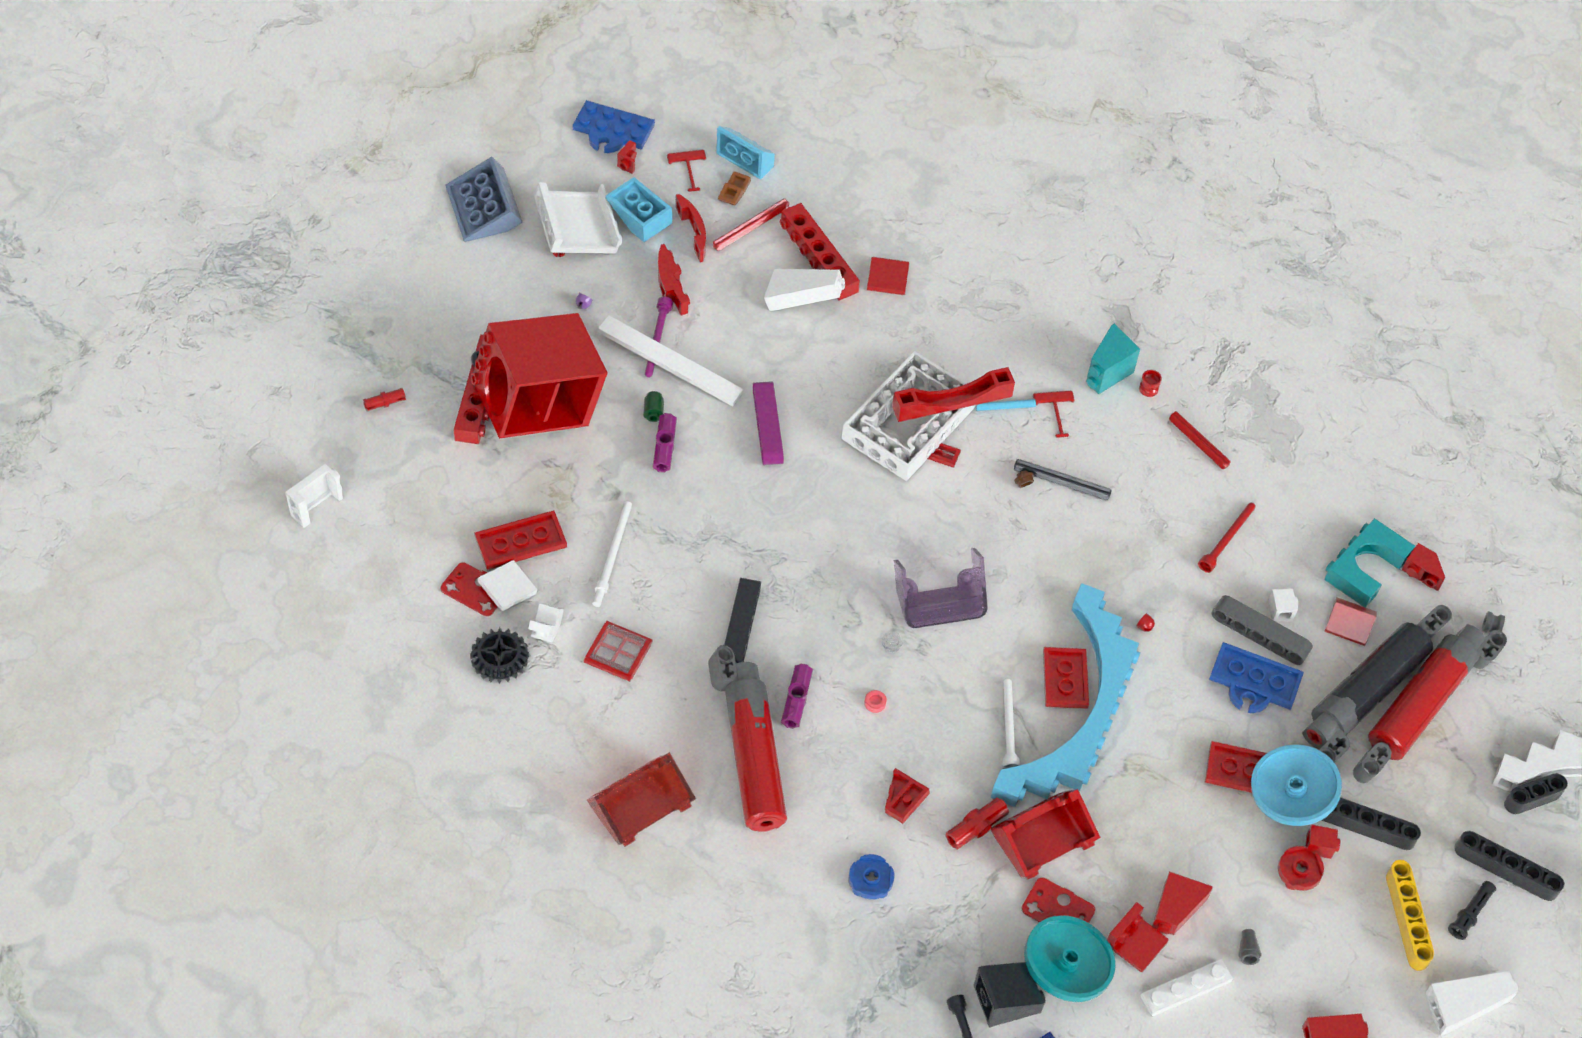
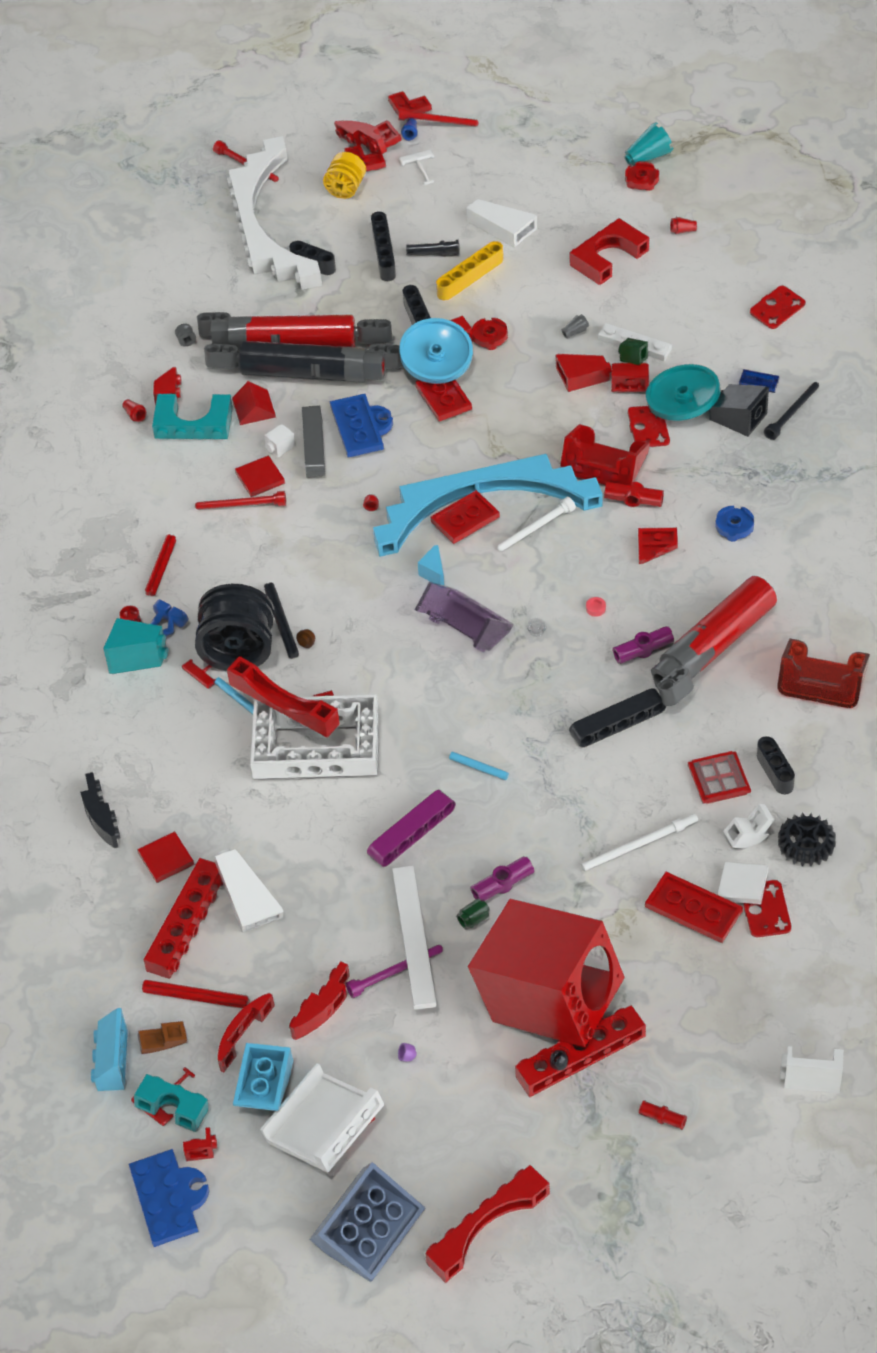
camera: 120 degrees left, 5 degrees down
(414, 287) = (522, 1192): none -> red arch
(594, 698) = (775, 765): none -> black beam
(662, 167) = (156, 1092): none -> teal arch
(787, 506) = (479, 765): none -> medium azure bar
(960, 256) = (99, 812): none -> black slope
(1024, 612) = (431, 567): none -> medium azure slope
(1061, 415) = (233, 624): none -> black wheel
(1126, 411) = (172, 614): none -> blue piece
(1166, 964) = (633, 351): none -> dark green brick
(1252, 569) = (259, 476): none -> red tile
(1414, 528) = (134, 410): none -> red cone

